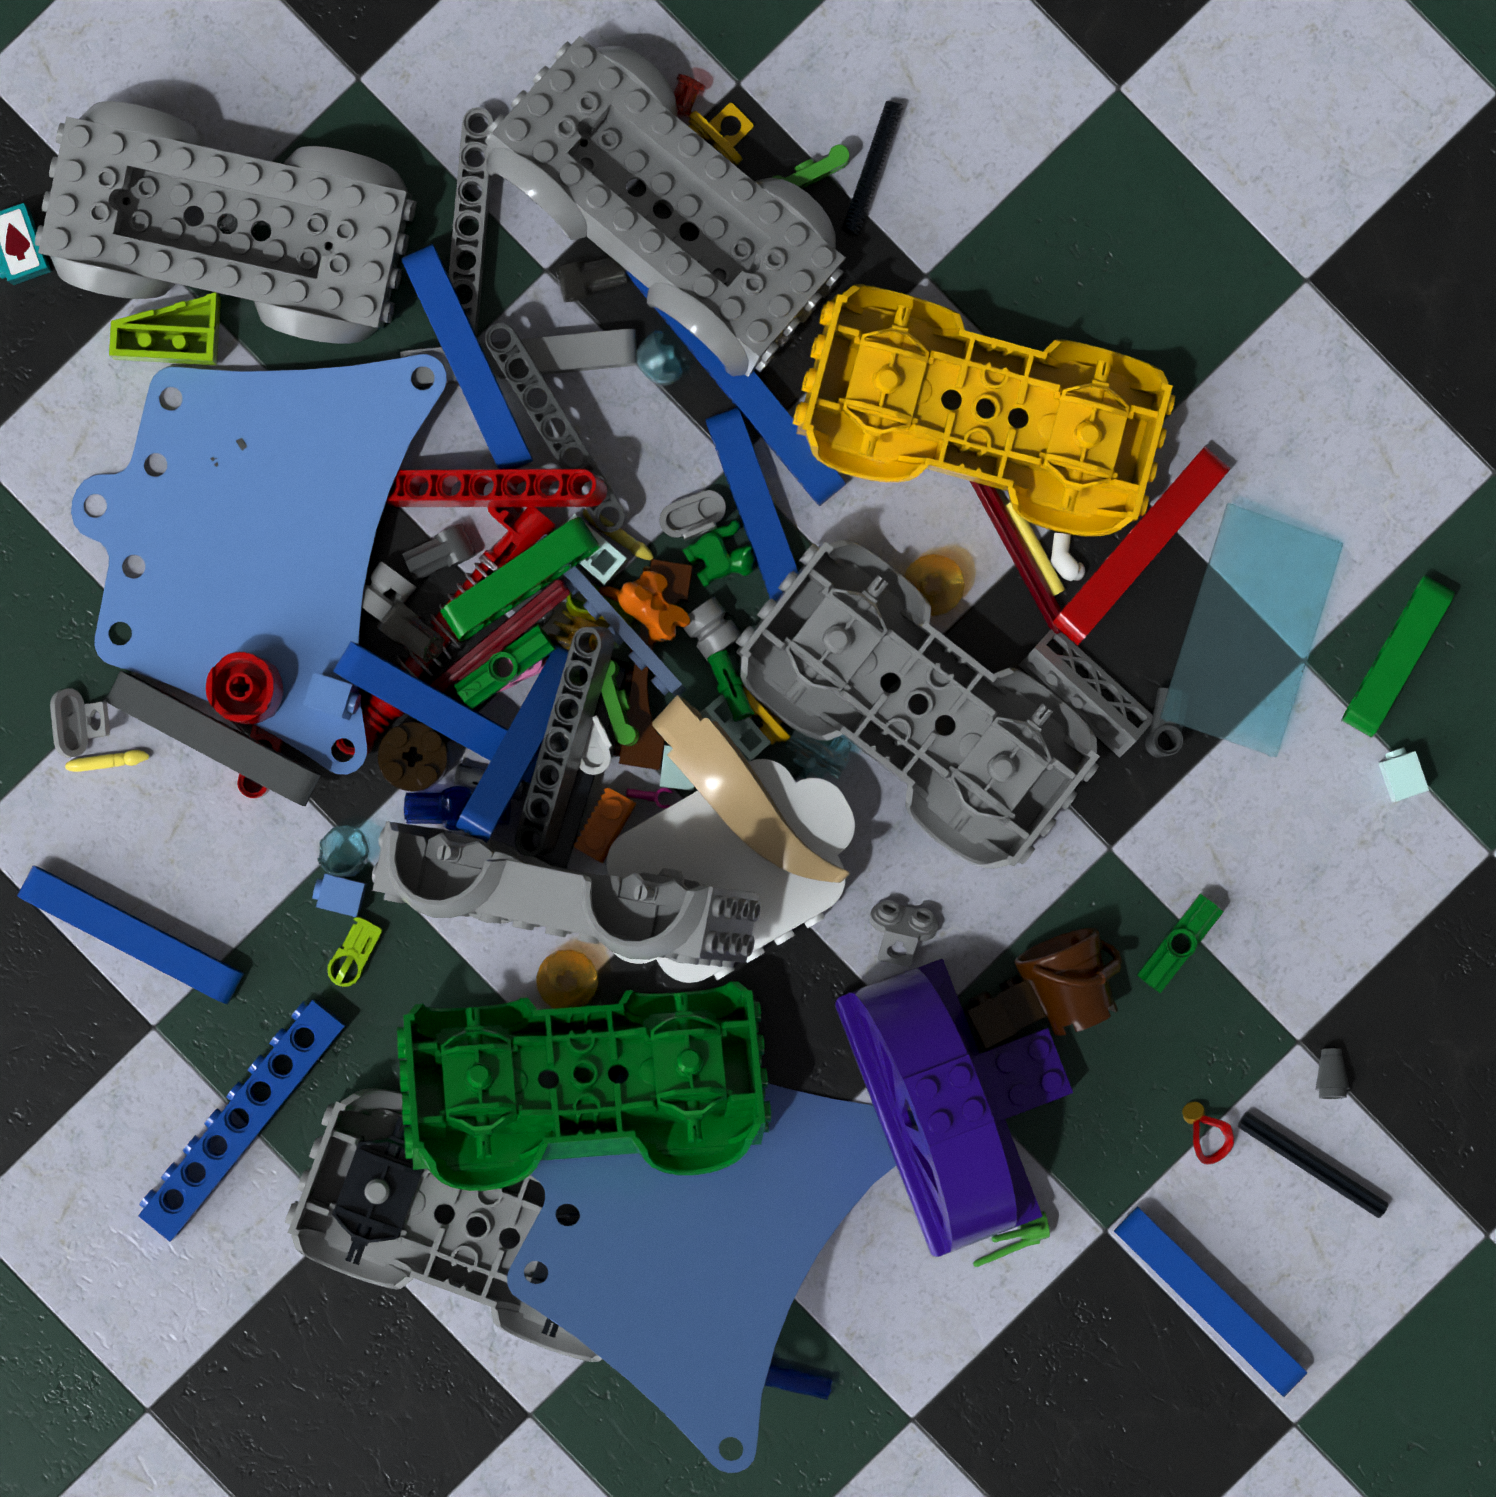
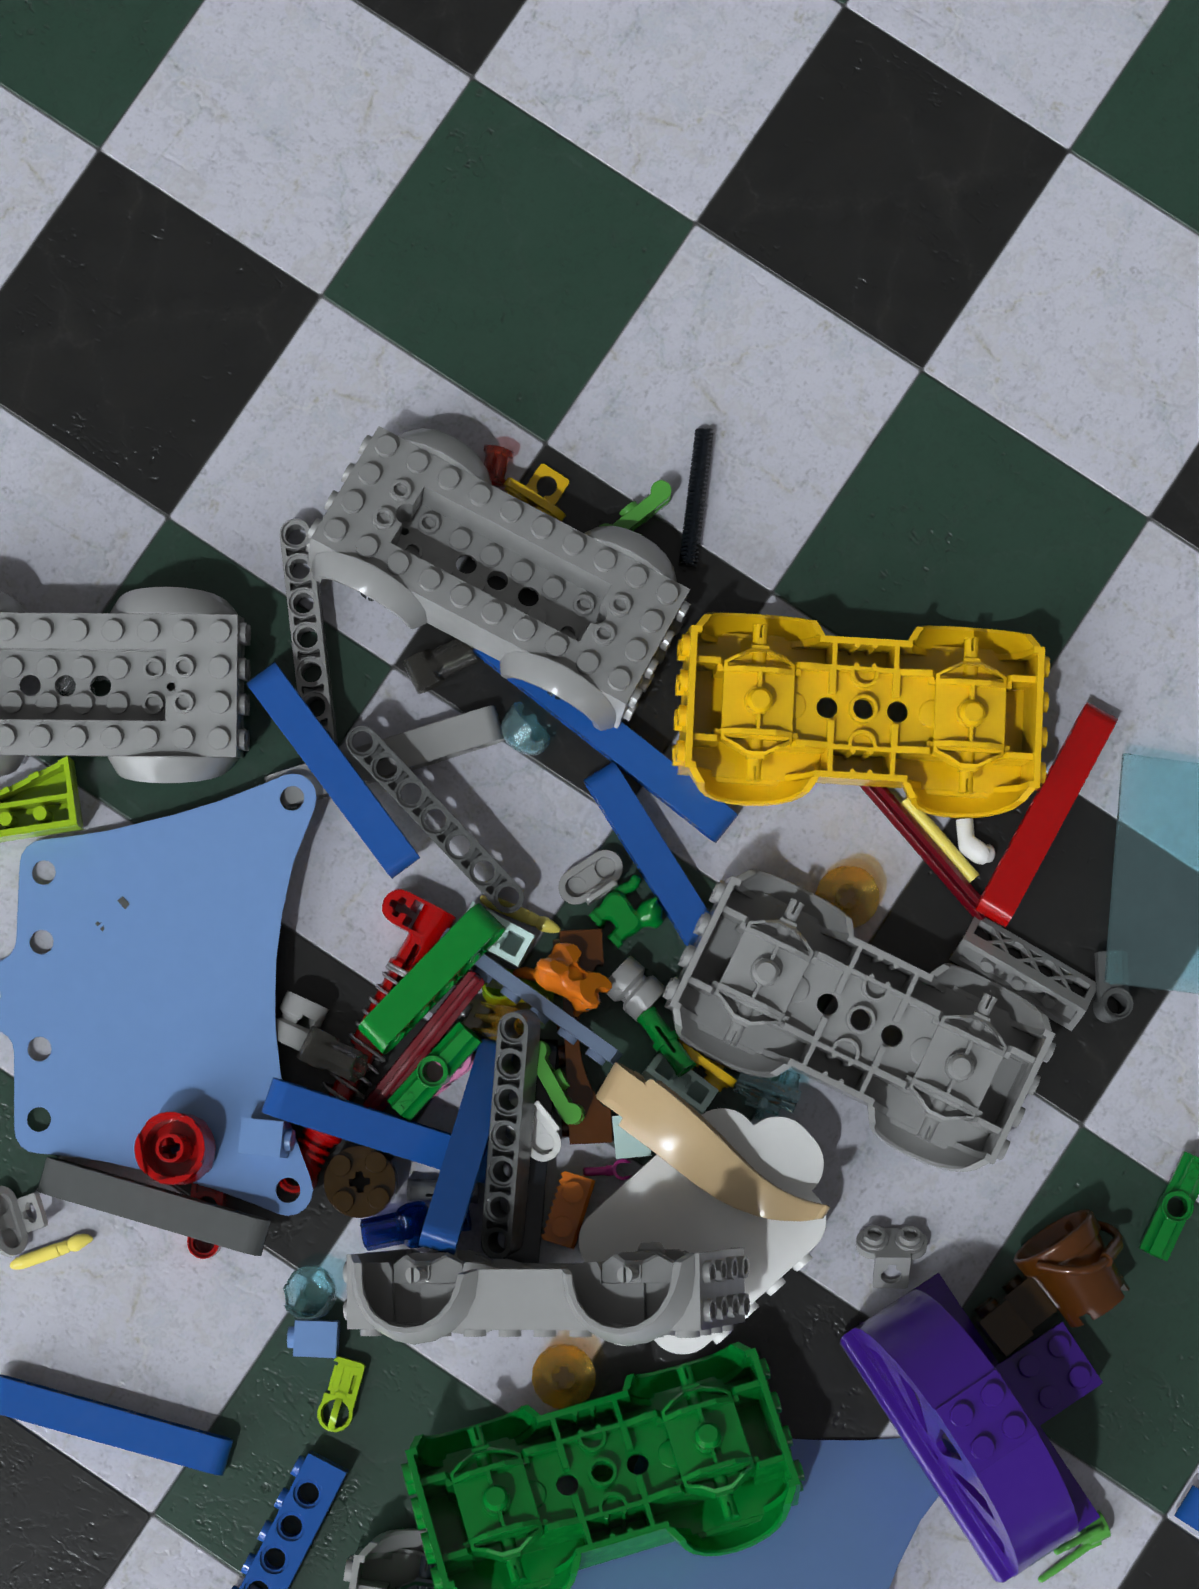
camera: 10 degrees left, 5 degrees down
(447, 549) = (352, 964): dark grey piece -> none
(504, 490) = (396, 896): red beam -> none

